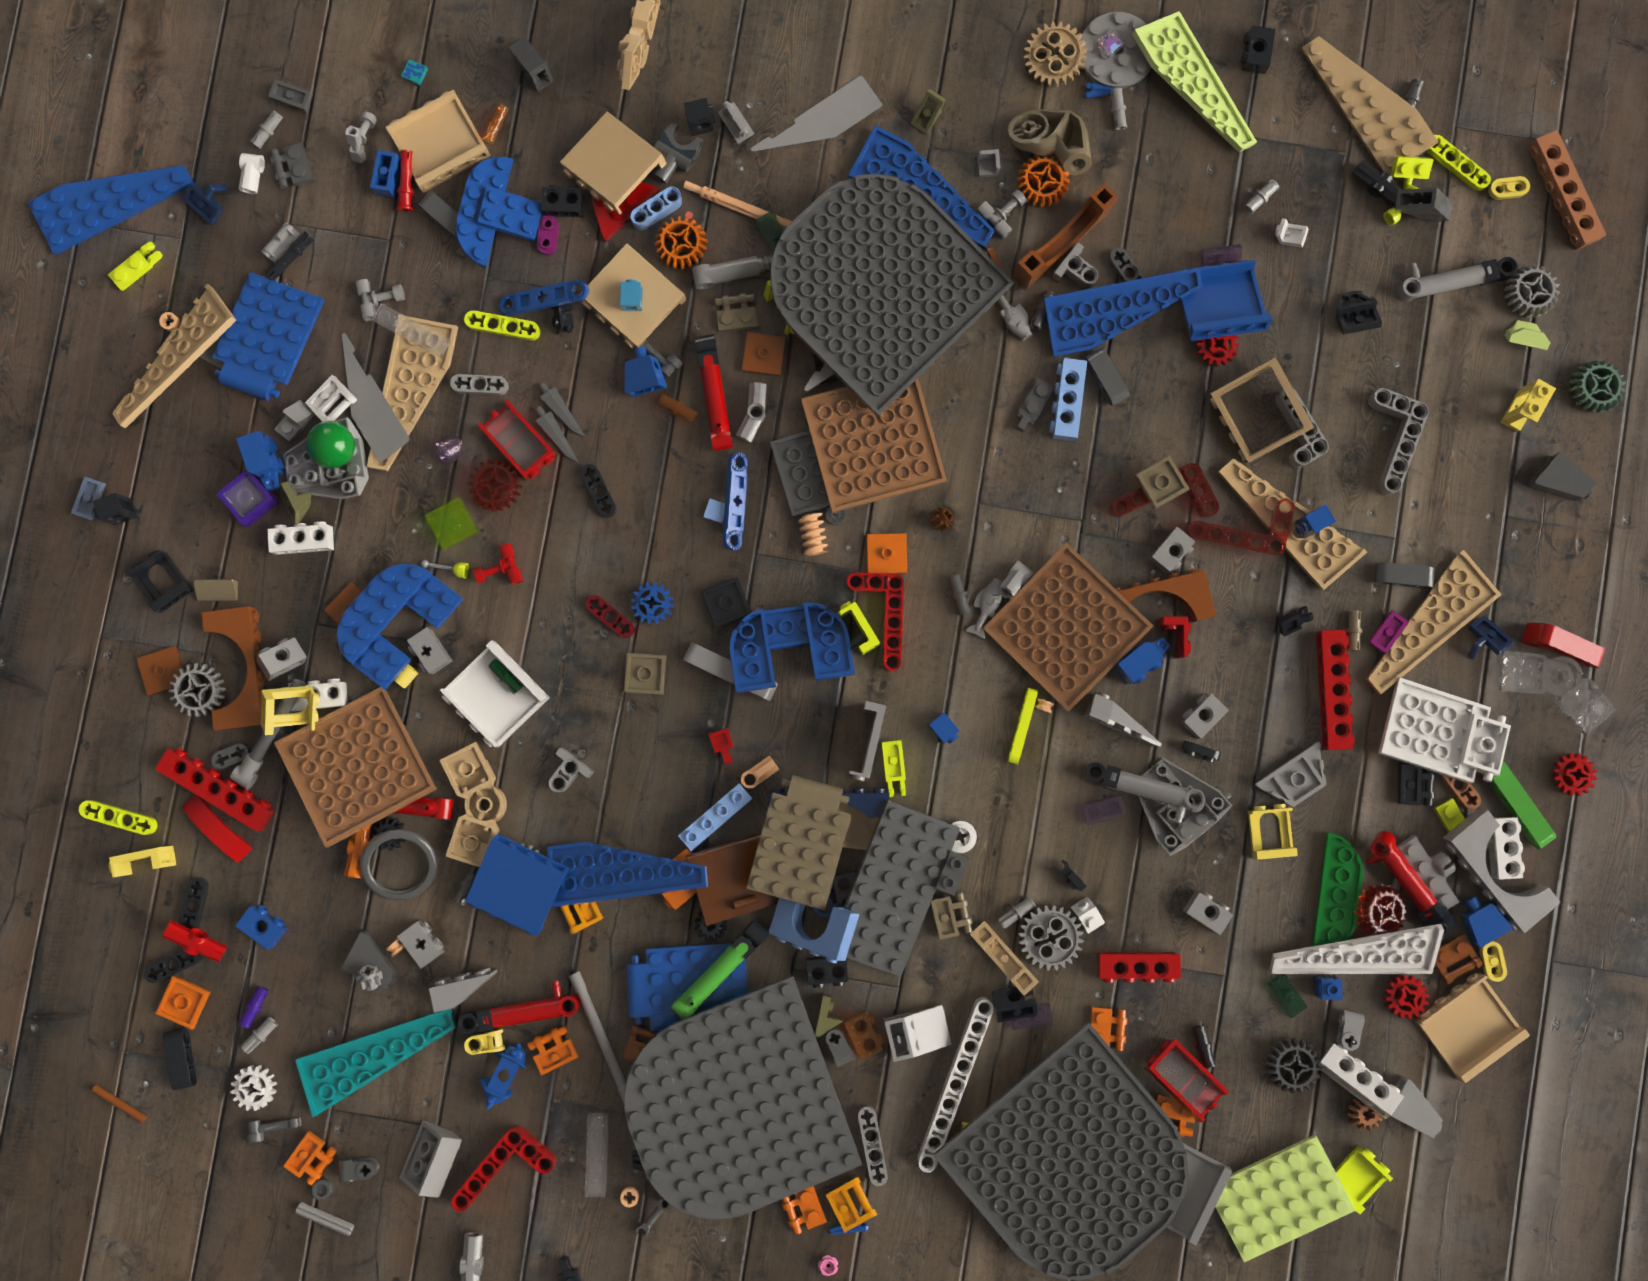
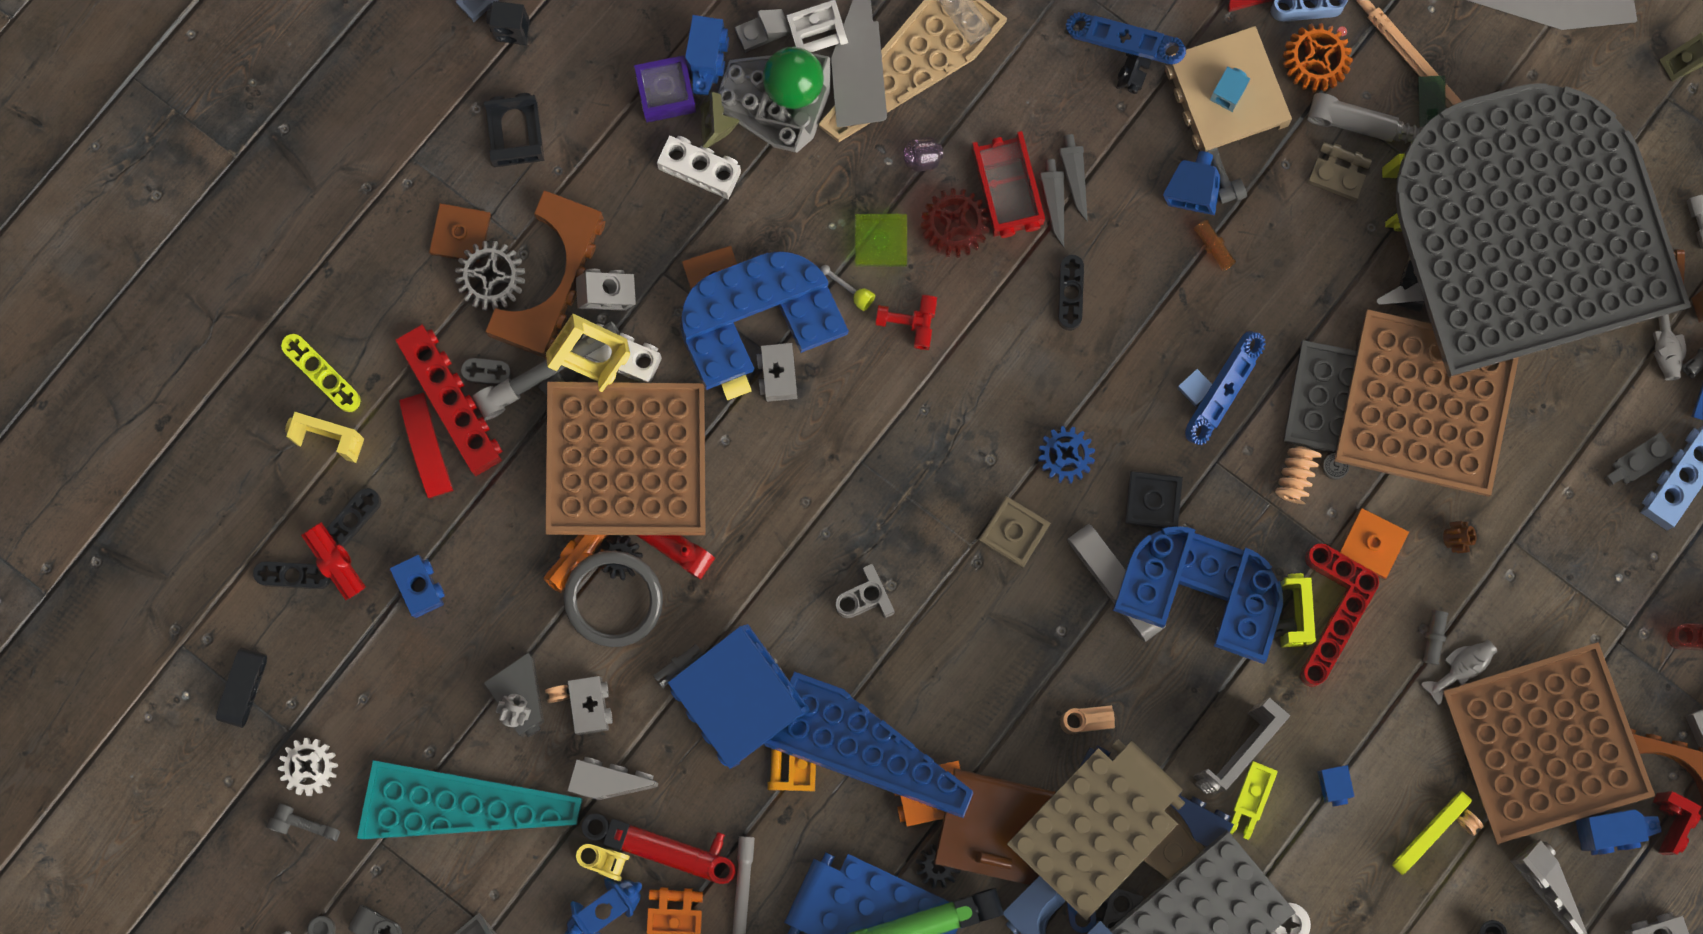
camera: 30 degrees right, 5 degrees down
(119, 1103) = (144, 702): dark orange bar -> none
(183, 1002) = (280, 624): orange plate -> none
(216, 590) = (571, 174): dark tan slope -> none
(253, 1006) = (357, 673): dark purple pin -> none
(259, 1035) = (345, 710): light grey axle -> none
(305, 1154) = (324, 877): orange plate -> none
(465, 388) = (977, 95): light grey beam -> none
(474, 780) = (750, 551): tan plate -> none
(490, 703) = (827, 463): white panel -> none
(501, 328) = (1055, 48): neon yellow beam -> none
(505, 676) = (850, 448): dark green axle -> none
(602, 603) = (1022, 459): dark red beam -> none
(713, 392) = (1266, 249): red piece -> none
(715, 817) = (1011, 742): light blue brick -> none
(722, 743) = (1063, 661): red plate -> none
(751, 424) = (1291, 307): light grey piece -> none
(763, 354) = (1347, 235): dark orange plate -> none
(895, 157) = (1624, 89): blue wing -> none
(1016, 578) = (1514, 653): light grey piece -> none

